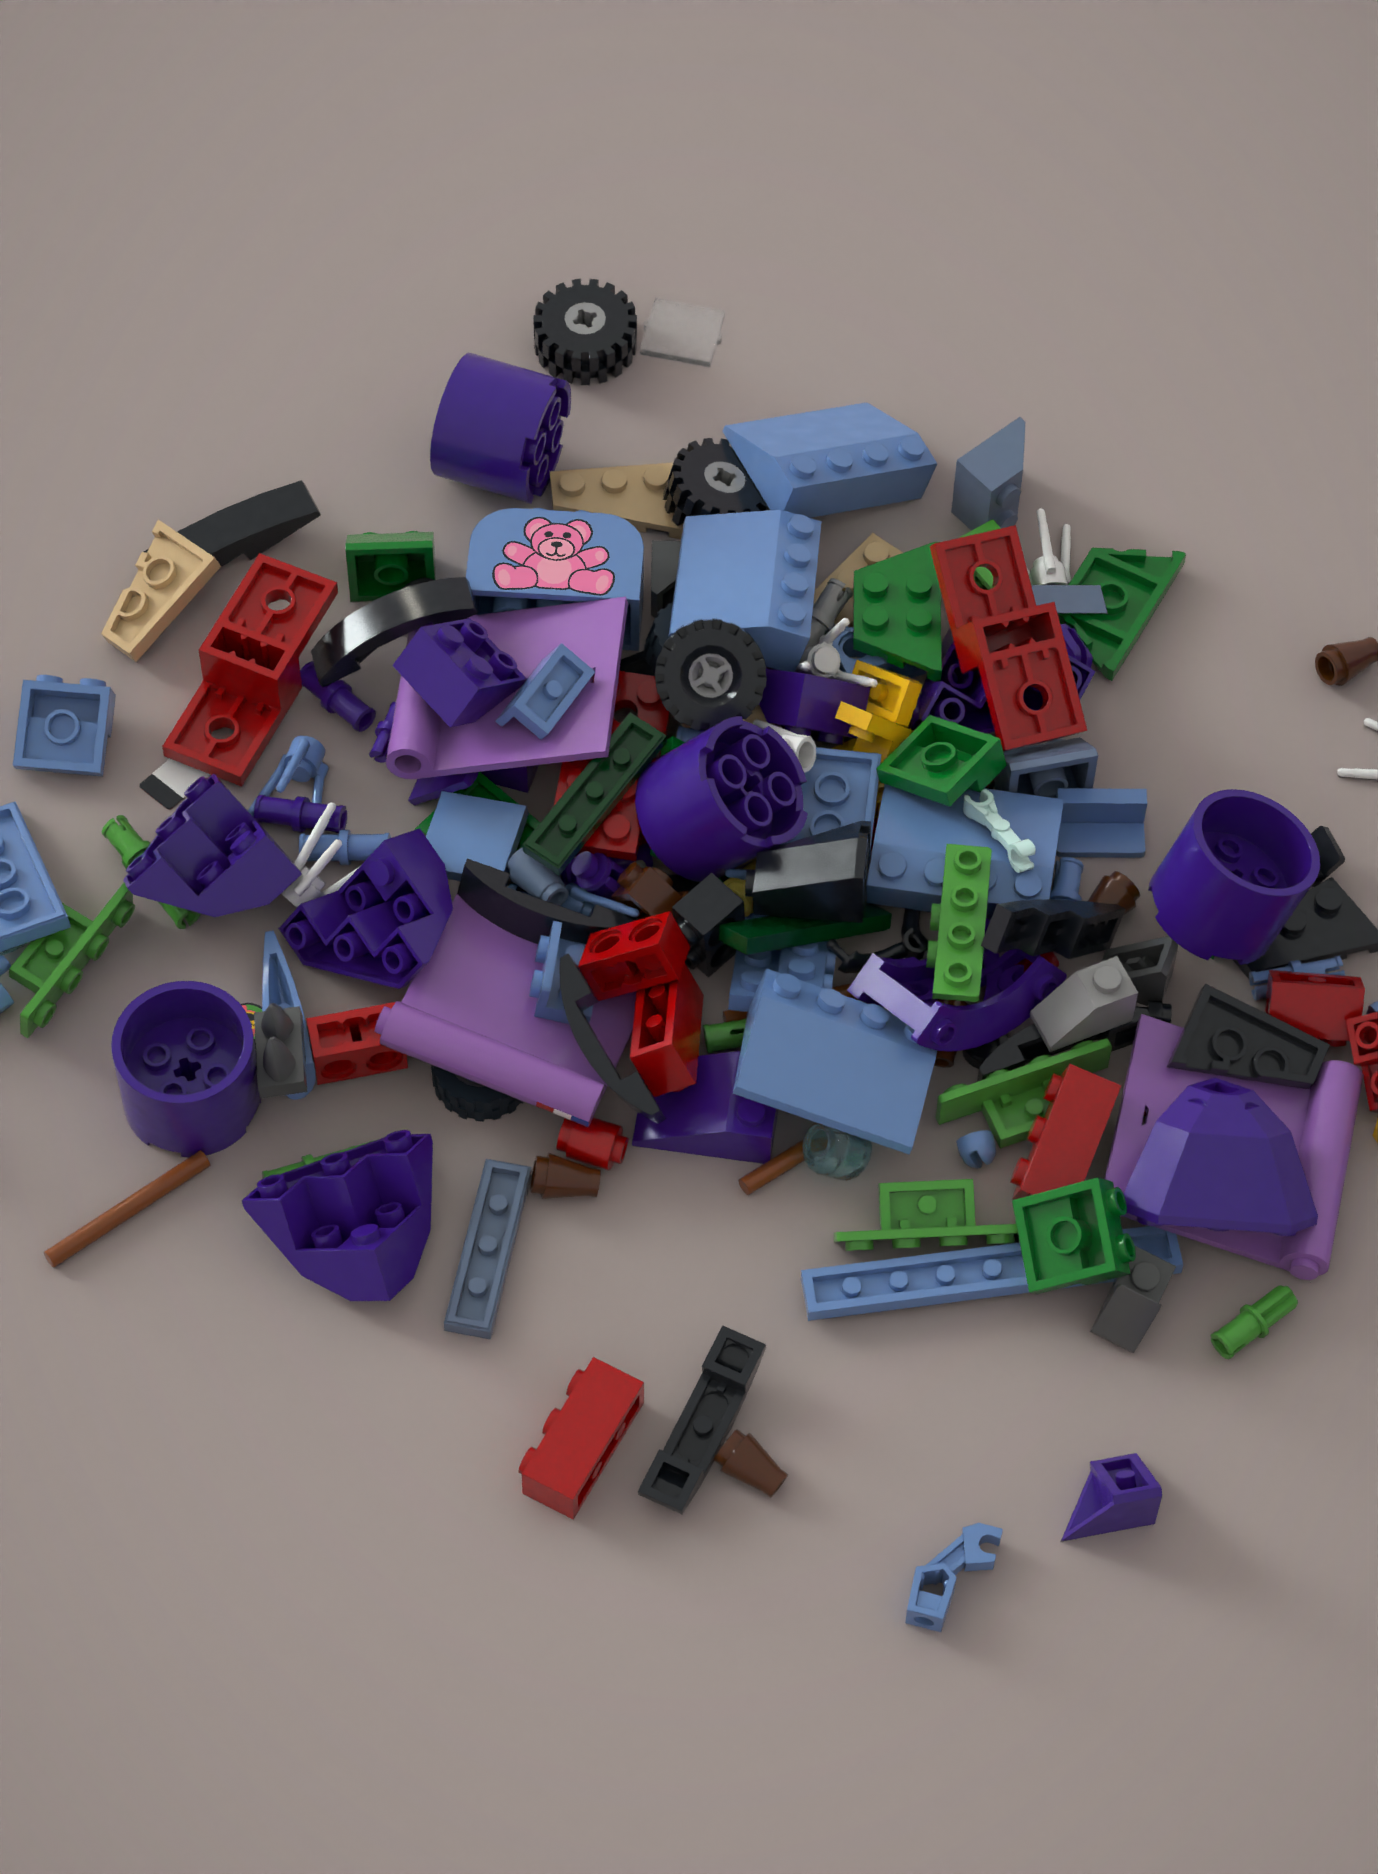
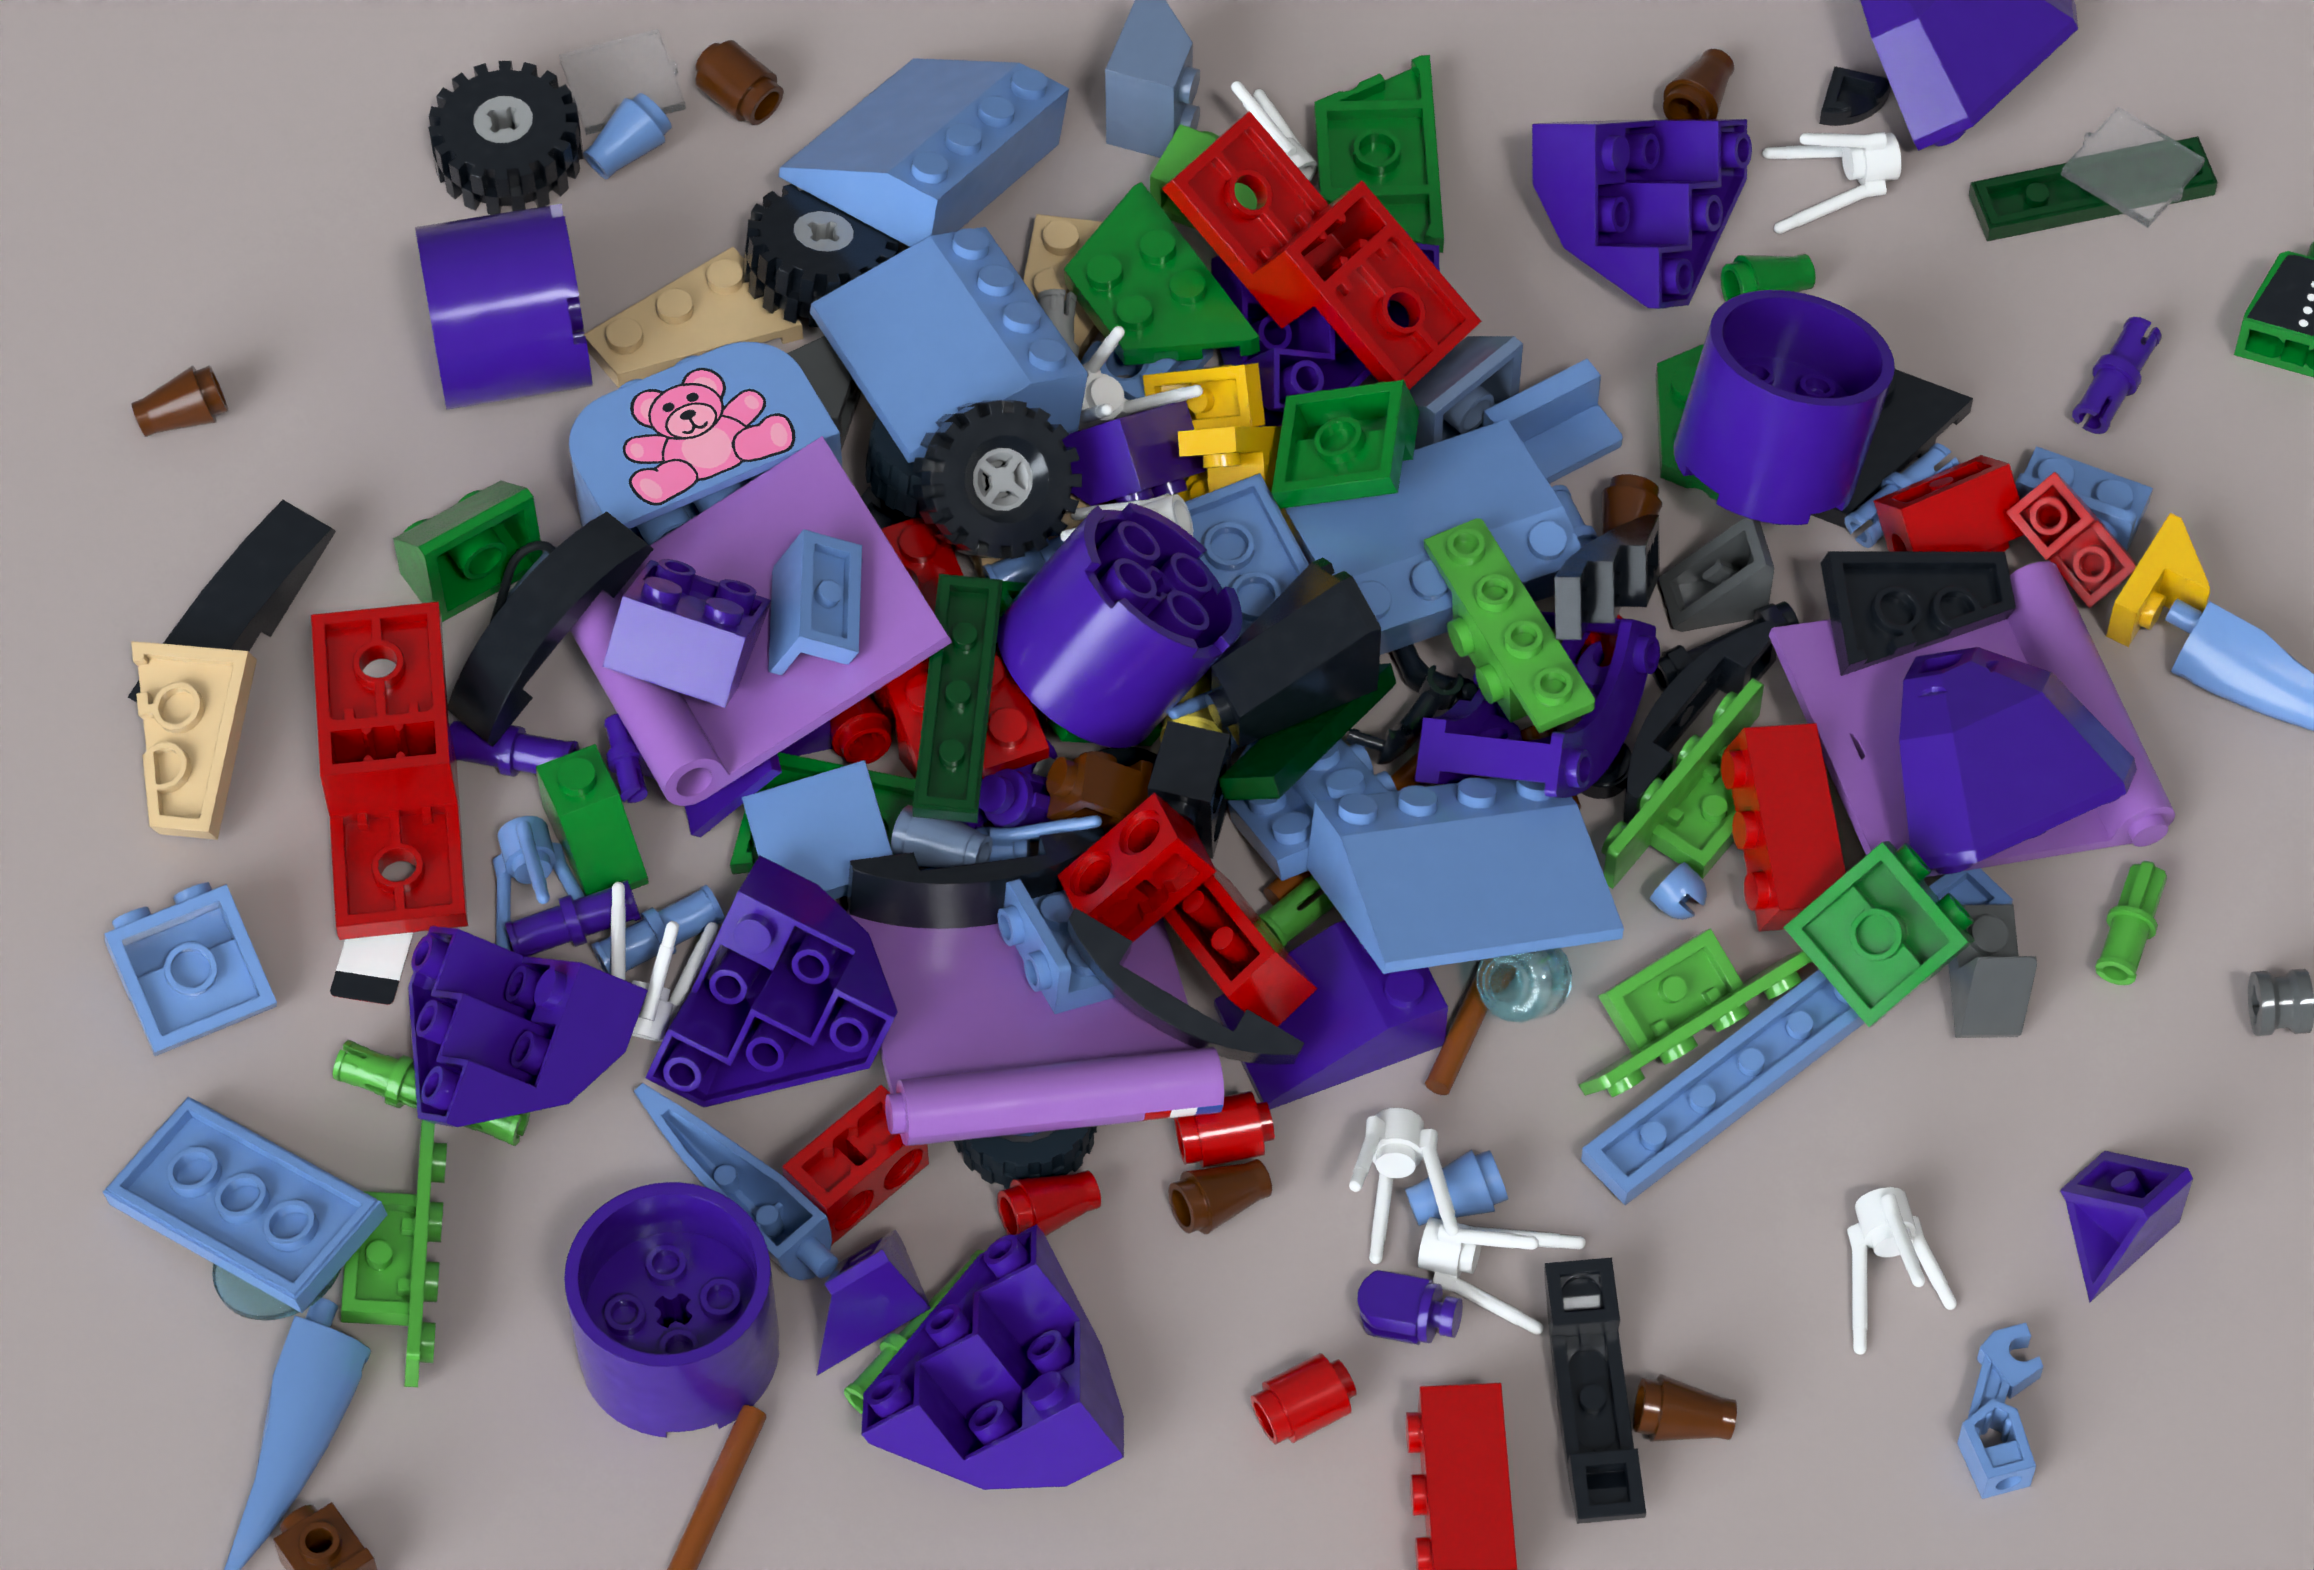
camera: 30 degrees left, 0 degrees up
(280, 1051) = (794, 1234): dark grey tile -> none
(293, 396) = (182, 402): none -> reddish brown cone
(310, 1125) = (870, 1298): none -> dark purple slope
(347, 761) = (590, 821): none -> green slope
(458, 1129) = (1047, 1201): none -> red cone
(487, 1249) = (1183, 1331): sand blue tile -> none
(526, 1327) = (1304, 1399): none -> red brick
(542, 787) = (861, 732): none -> red cone
(628, 1308) = (1407, 1308): none -> dark purple arm
(658, 365) = (629, 134): none -> medium blue cone
(684, 1289) = (1460, 1253): none -> white plant
(688, 1207) = (1396, 1146): none -> white plant
(712, 1254) = (1472, 1185): none -> medium blue cone
(747, 365) = (738, 82): none -> reddish brown brick
(957, 1425) = (1890, 1231): none -> white plant
(987, 814) = (1438, 480): light aqua piece -> none
(1071, 598) = (1343, 171): sand blue sticker -> none
(1086, 1005) = (1708, 649): light grey slope -> none
(1259, 708) = (1642, 197): none -> dark purple brick
(1306, 798) = (1765, 272): none -> green cone
(1313, 1422) = (2281, 1002): none -> dark grey wheel

